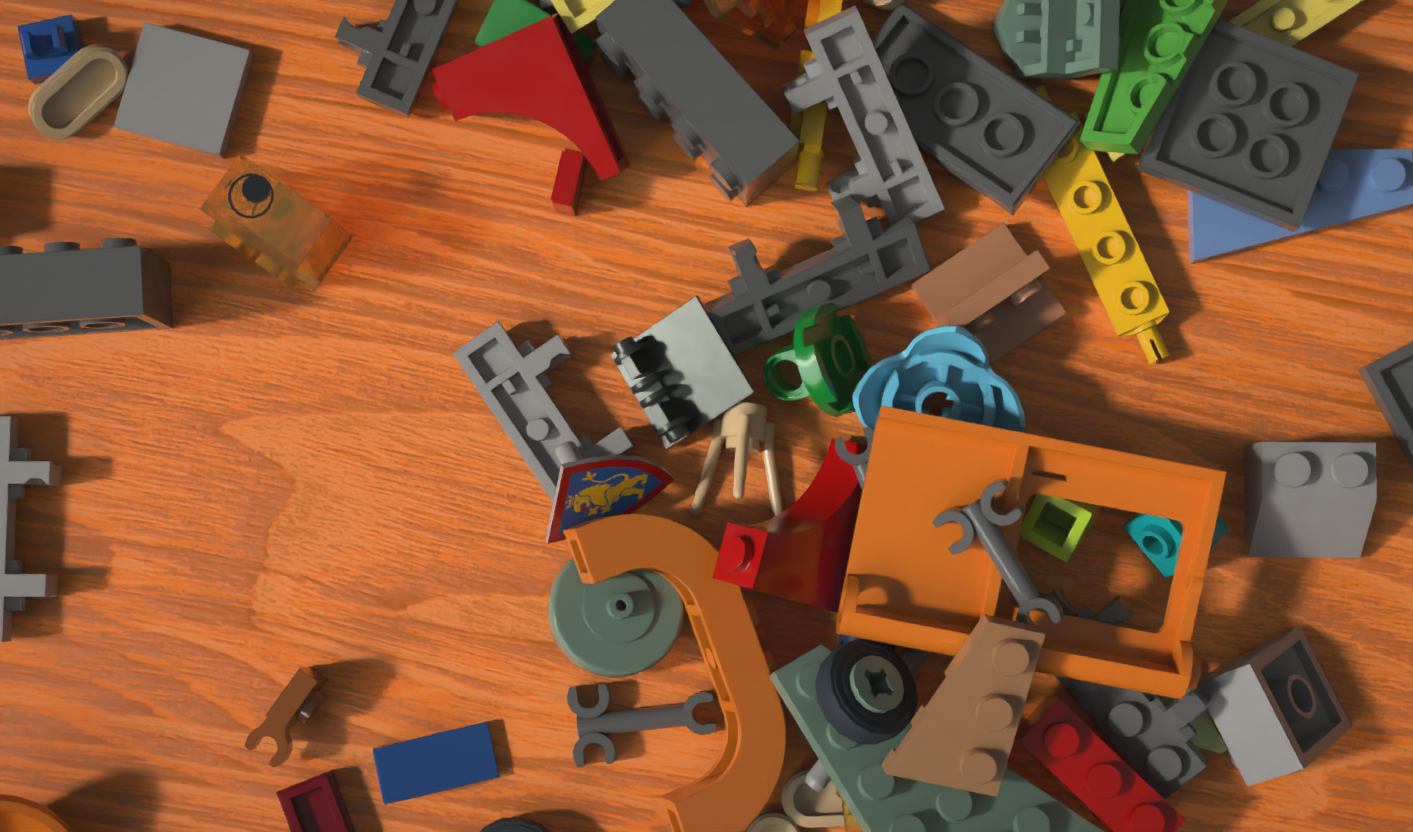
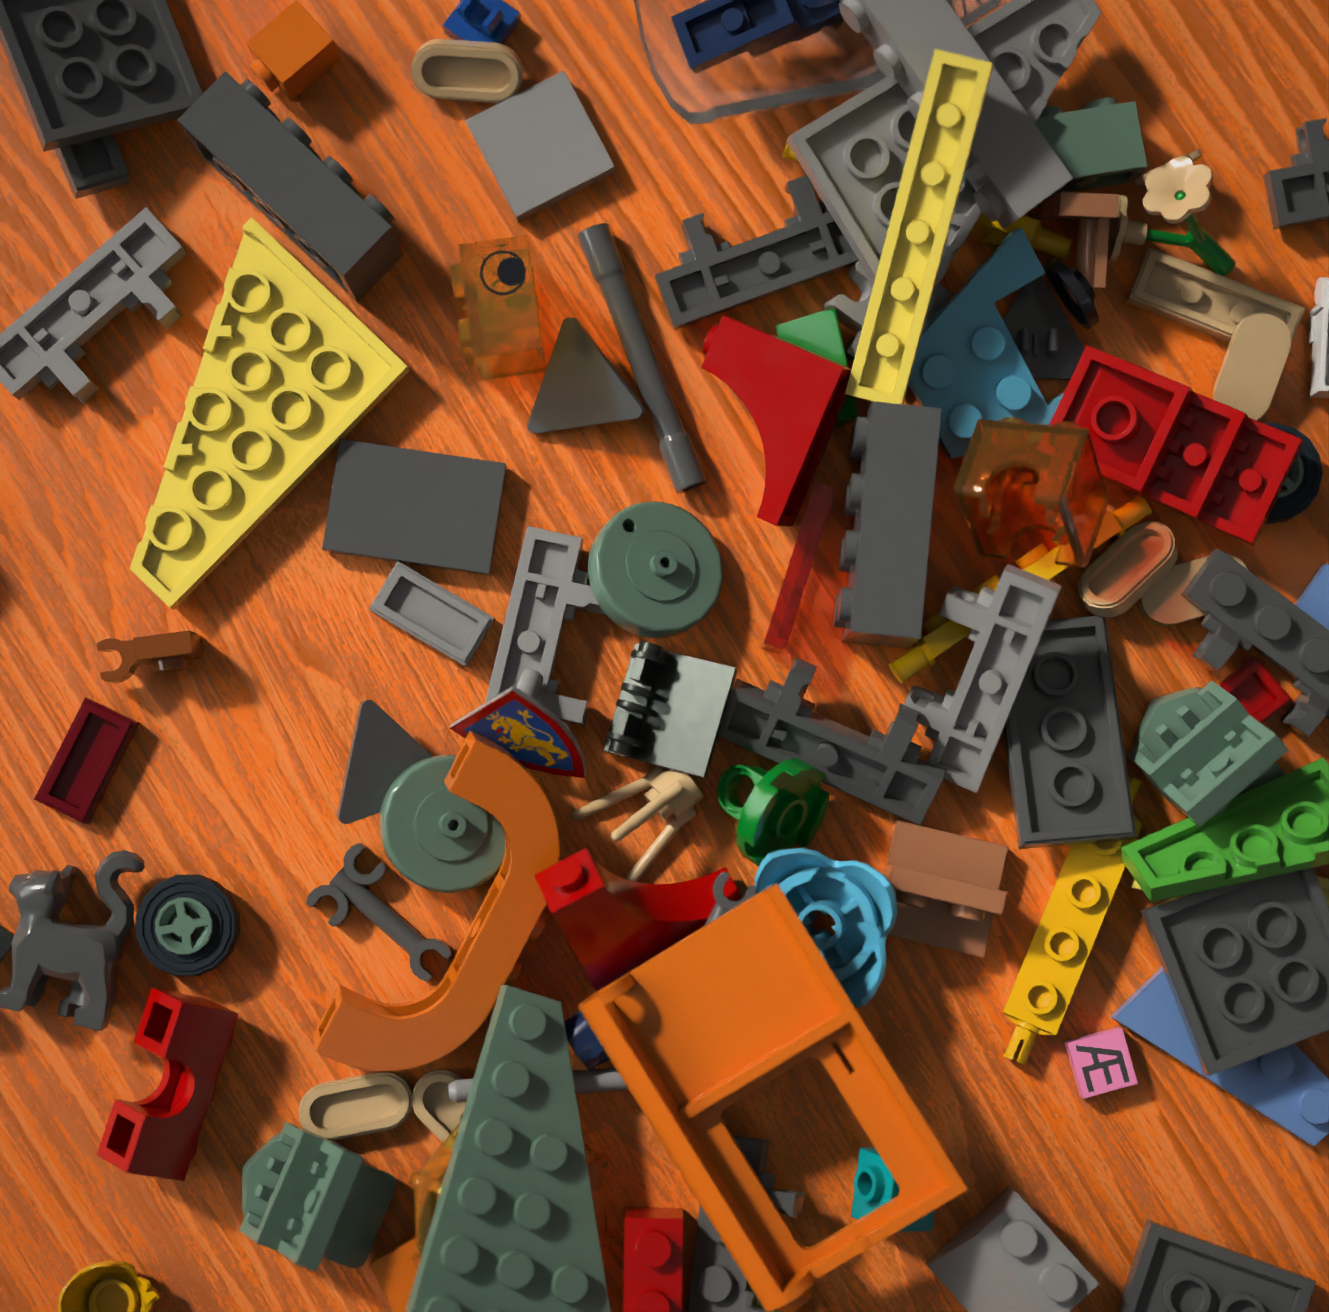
camera: 40 degrees right, 0 degrees up
(186, 458) = (270, 400): none -> light yellow wing
(324, 126) = (674, 441): none -> dark grey piece
(362, 423) = (414, 507): none -> dark grey tile
(386, 221) = (580, 386): none -> dark grey piece
(435, 762) = (213, 794): blue slope -> none
(451, 482) = (432, 614): none -> light grey tile
(520, 618) = (376, 758): none -> dark grey piece
(569, 182) = (735, 493): red tile -> none
(570, 289) = (655, 569): none -> sand green wheel
(665, 186) = (798, 568): none -> clear red tile
(845, 686) = (540, 1051): black wheel -> none
(974, 715) = (613, 1163): medium nougat wing -> none
(982, 519) = (761, 1039): dark grey bar -> none
(1058, 524) = (813, 1098): lime brick -> none
(1217, 299) = (1100, 1062): none -> bright pink tile

